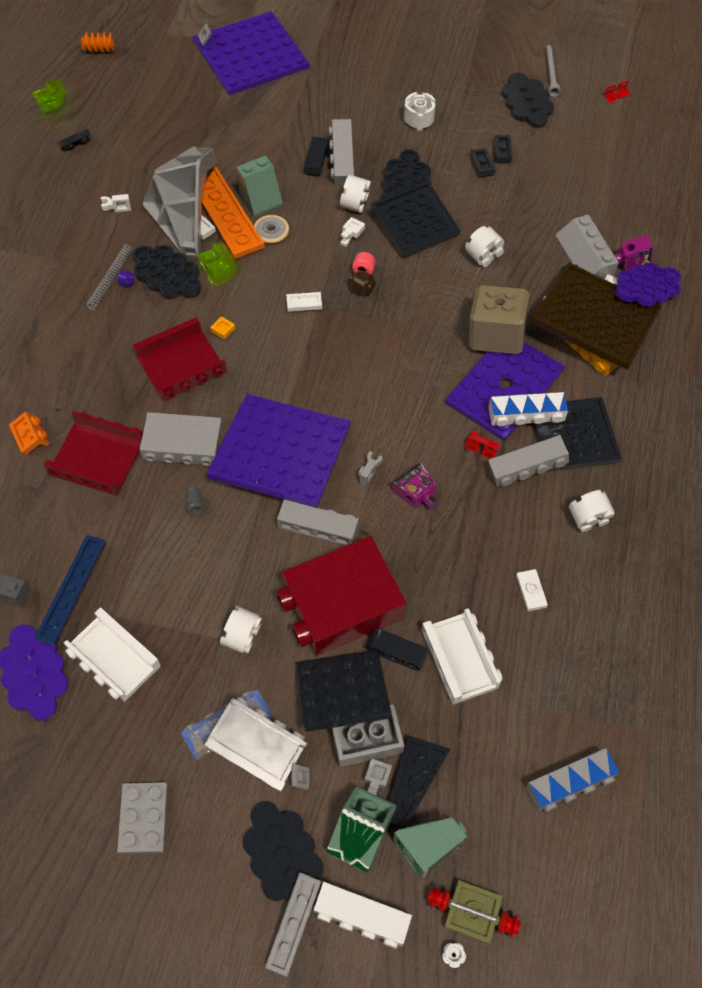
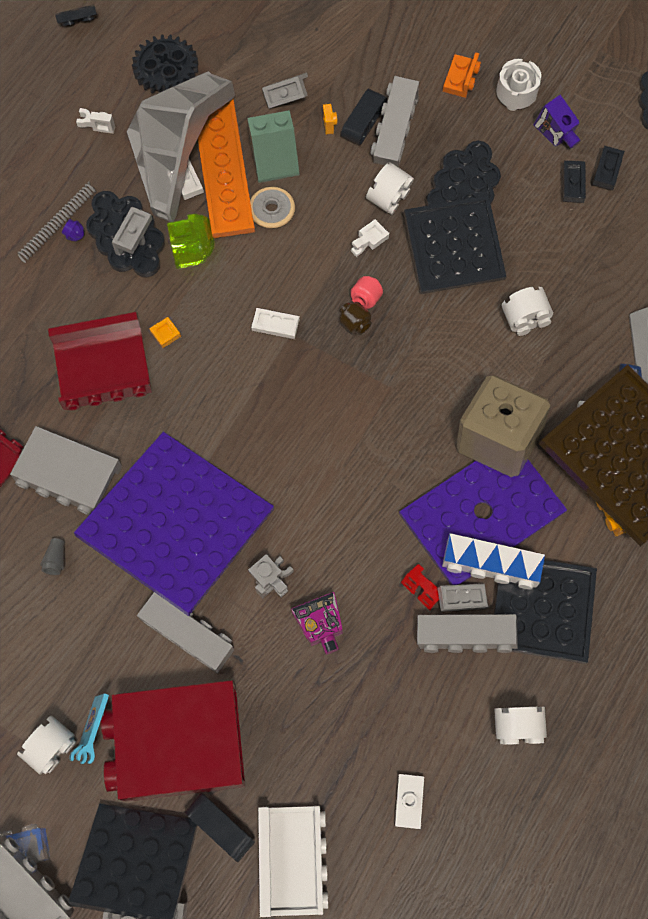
camera: 20 degrees right, 10 degrees up
(152, 154) = (164, 63): none -> black gear
(174, 263) = (131, 231): none -> light grey panel
(253, 150) = (285, 90): none -> light grey panel
(271, 607) = (90, 730): none -> medium azure flag
(291, 162) = (329, 118): none -> light orange plate
(367, 461) = (267, 574): none -> light grey plate
(376, 115) = (460, 75): none -> orange bracket
(457, 127) = (558, 123): none -> dark purple torso
(513, 441) = (462, 597): none -> light grey plate

